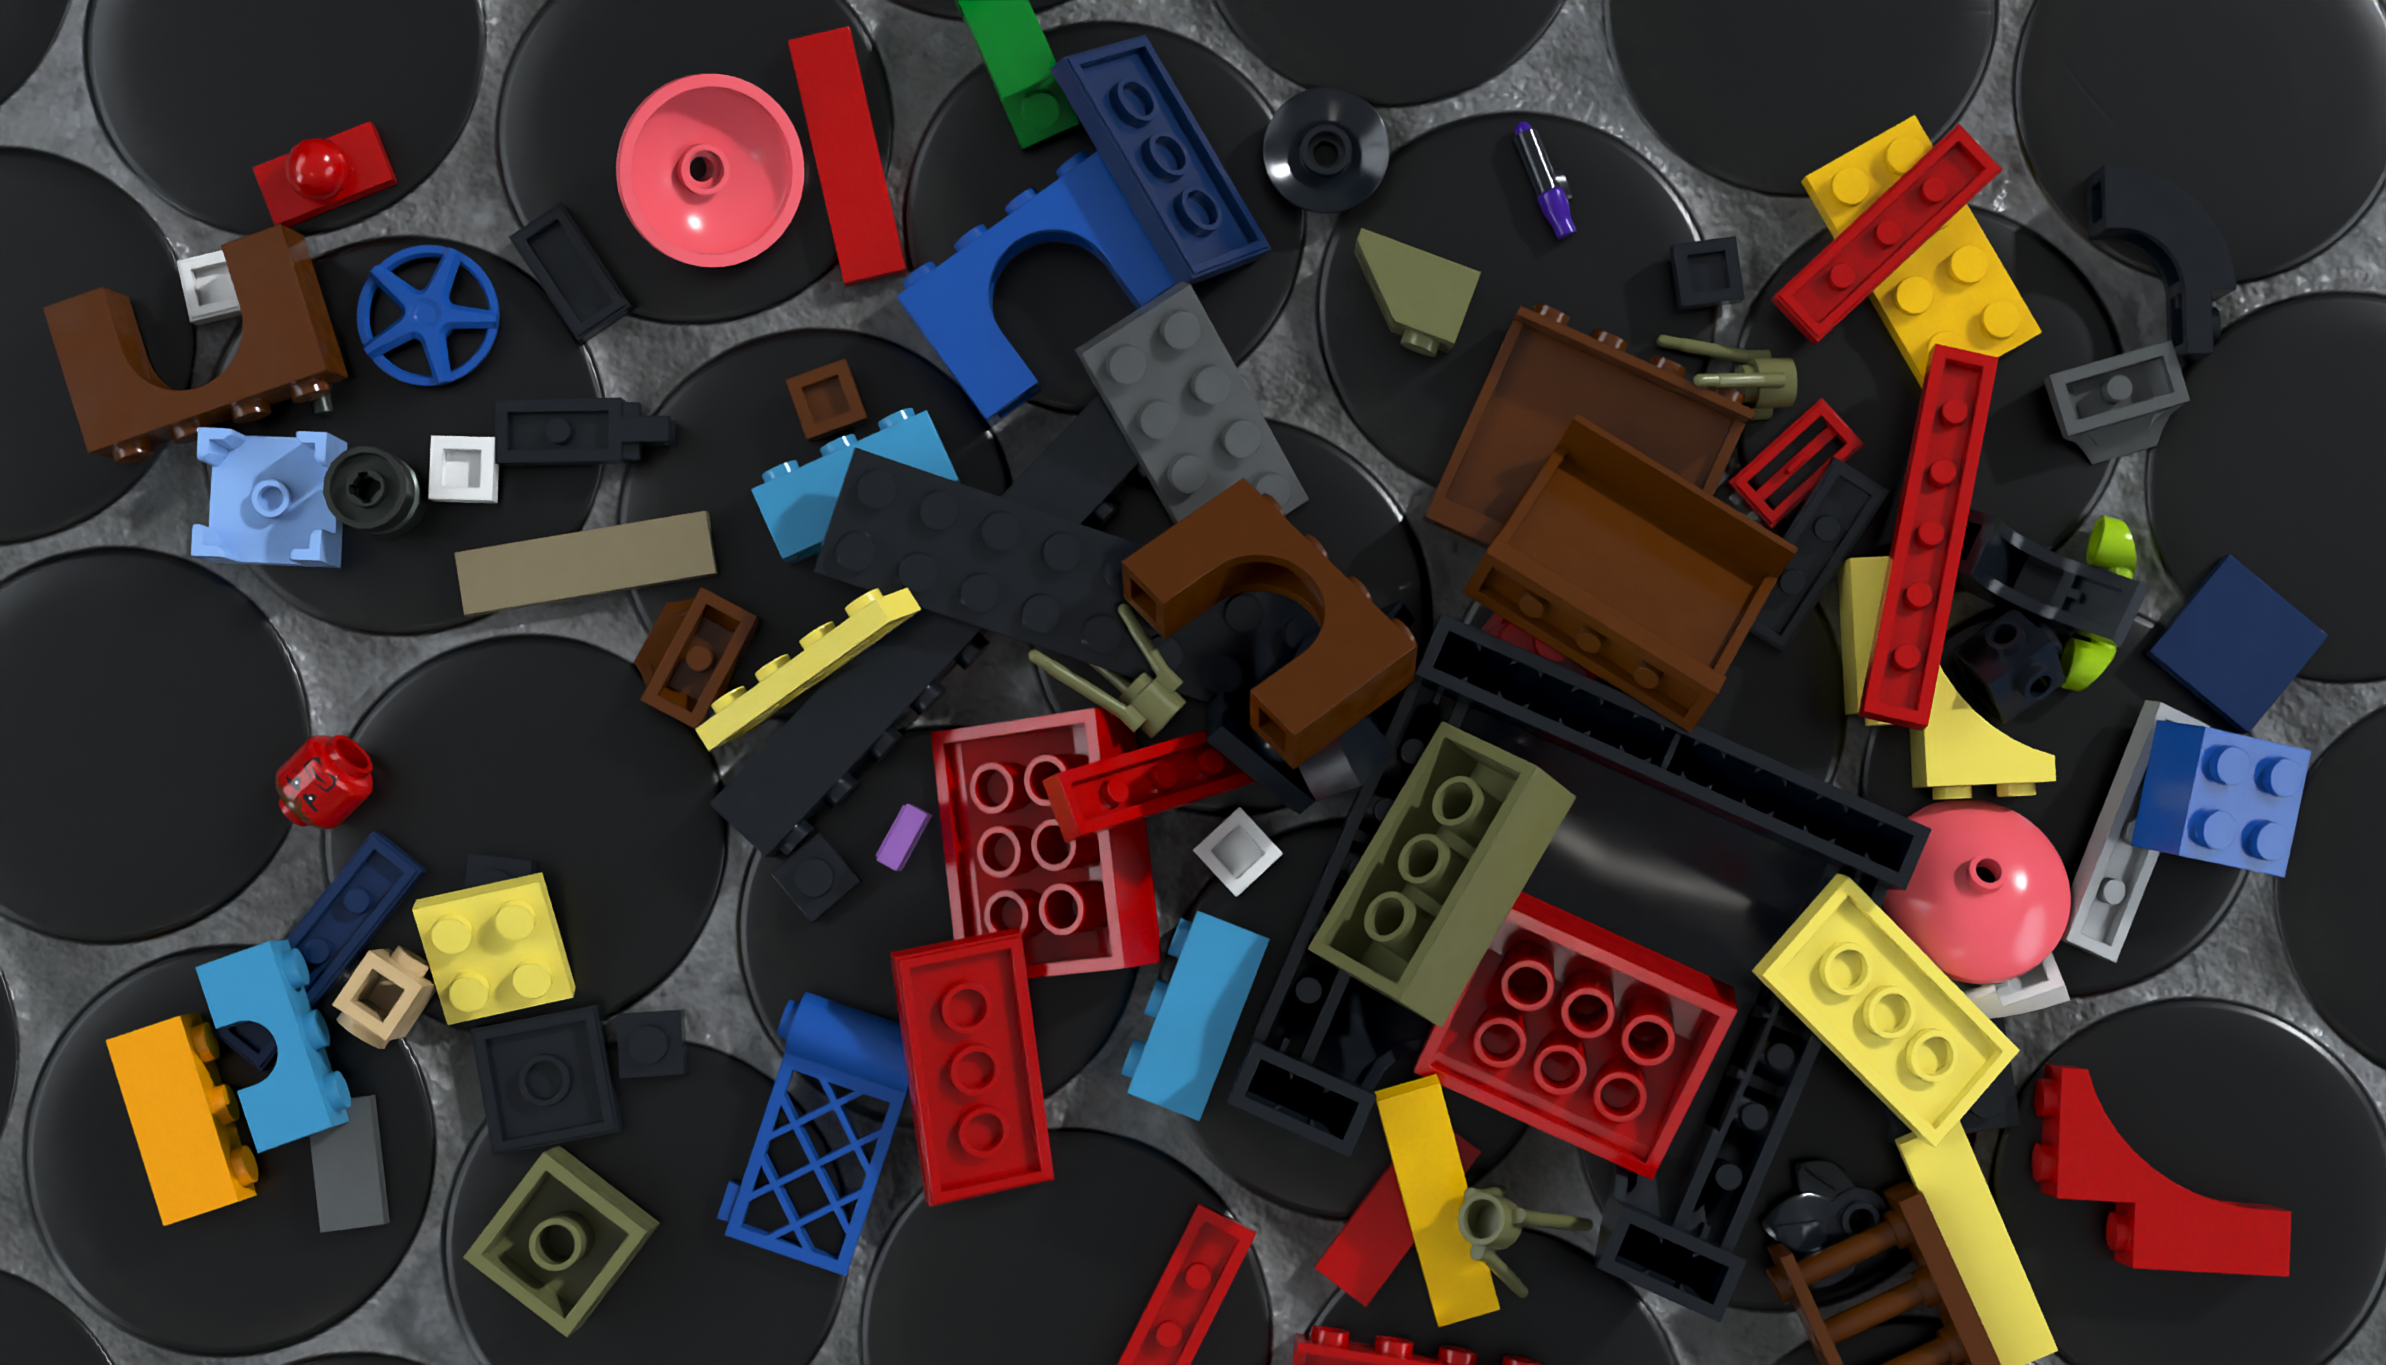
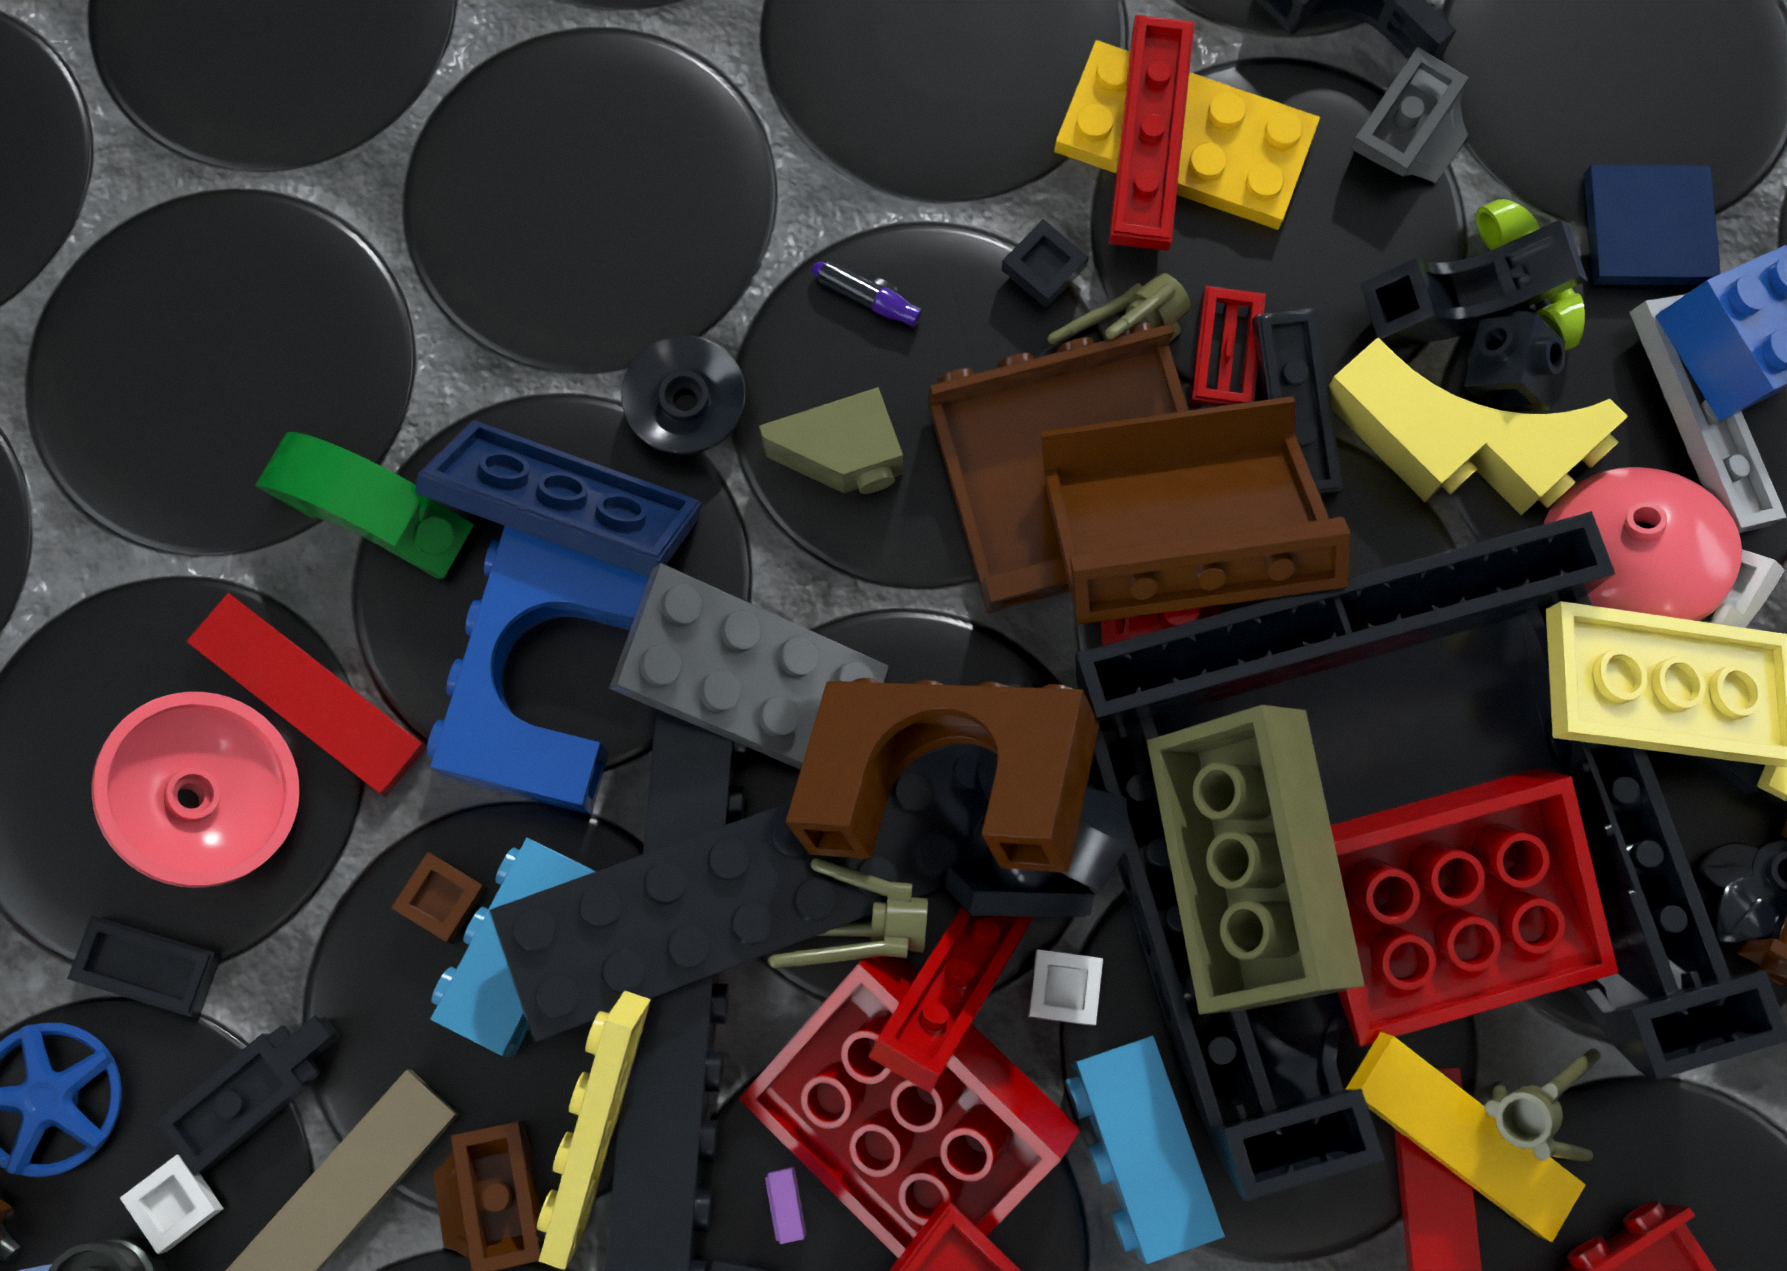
camera: 40 degrees left, 10 degrees down
(1928, 537) = (1382, 316): red plate -> none

